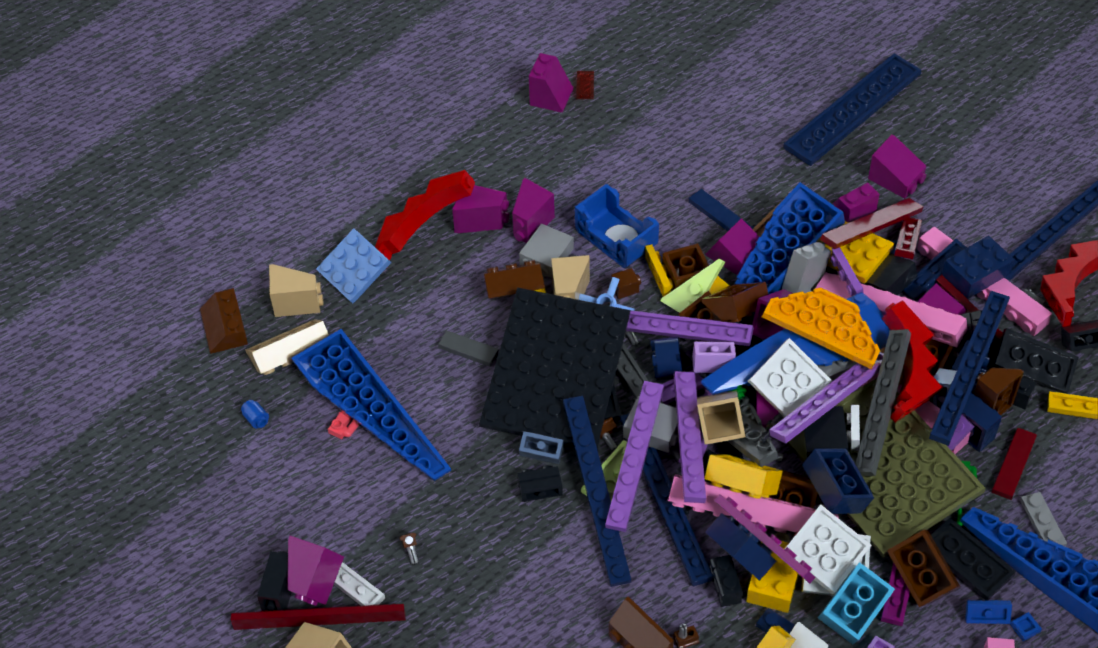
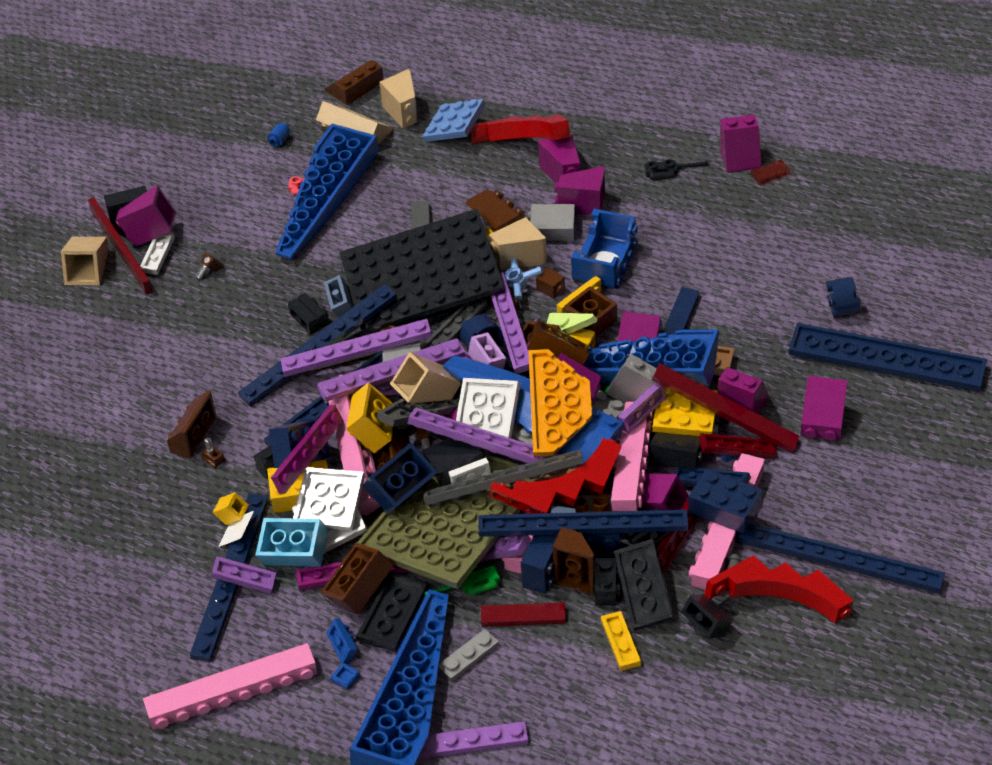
camera: 65 degrees right, 5 degrees down
(529, 143) = (666, 169): none -> black piece
(777, 101) = (842, 297): none -> dark blue brick

